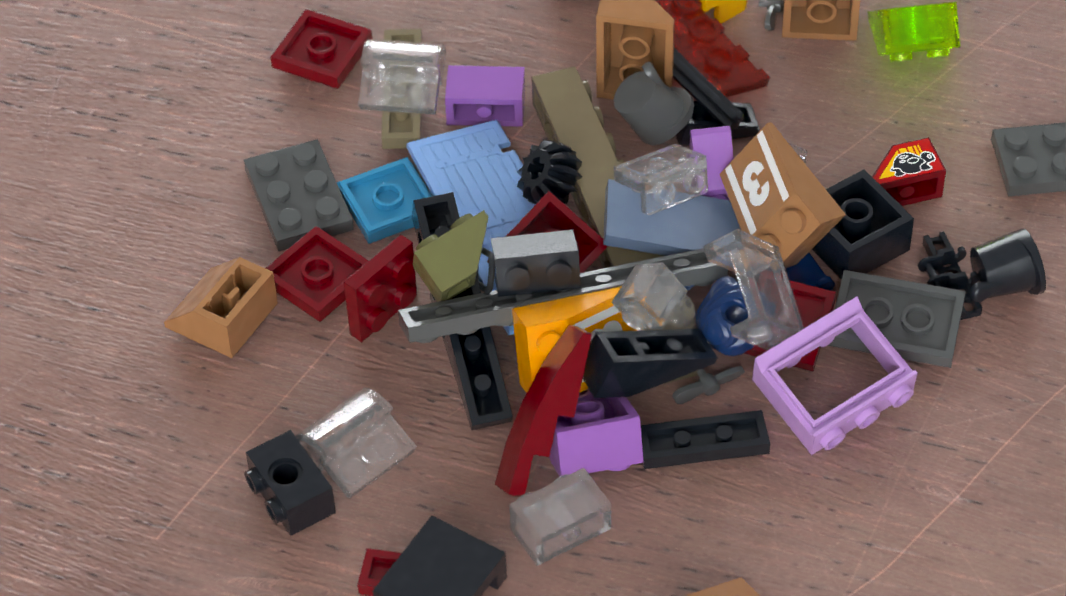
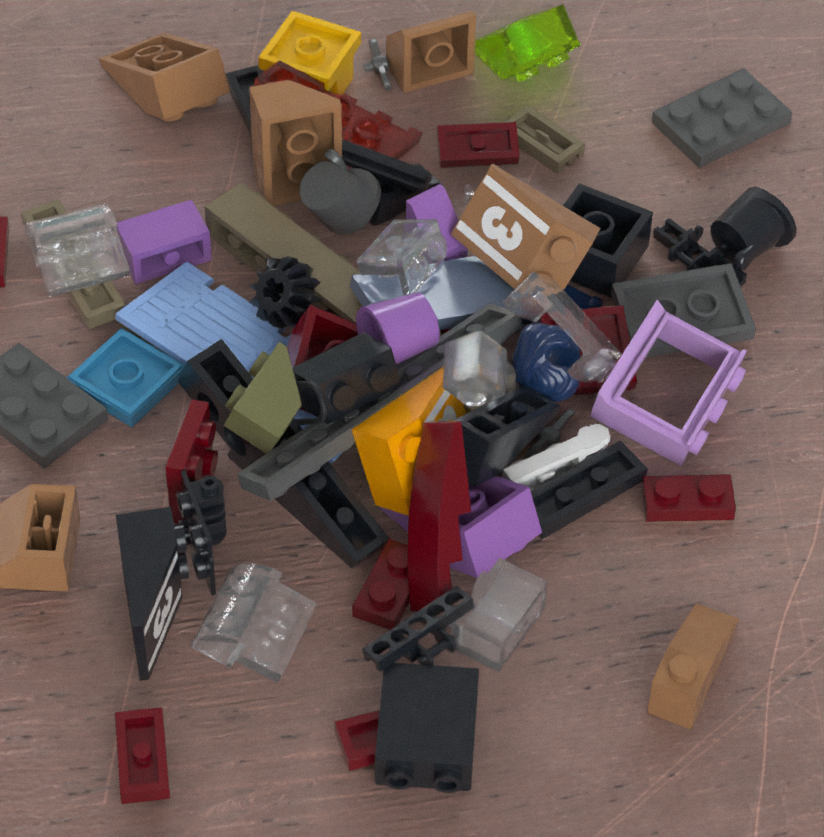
camera: 30 degrees left, 0 degrees up
(202, 512) = (142, 755): none -> dark red plate
(286, 375) = (152, 574): none -> black slope
(307, 493) = (199, 669): black brick -> none
(314, 273) = (108, 471): dark red plate -> none
(361, 342) = (203, 522): none -> black hinge
(479, 462) = (386, 588): none -> dark red plate
(494, 494) = (409, 647): none -> black piece
(610, 238) = (401, 323): none -> medium lavender hat
(667, 407) = (558, 457): none -> white hinge
(796, 484) = (688, 498): none -> dark red plate
(811, 105) = (478, 144): none -> dark red plate
(885, 141) = (538, 143): none -> dark tan tile
(912, 172) = (613, 169): slope -> none

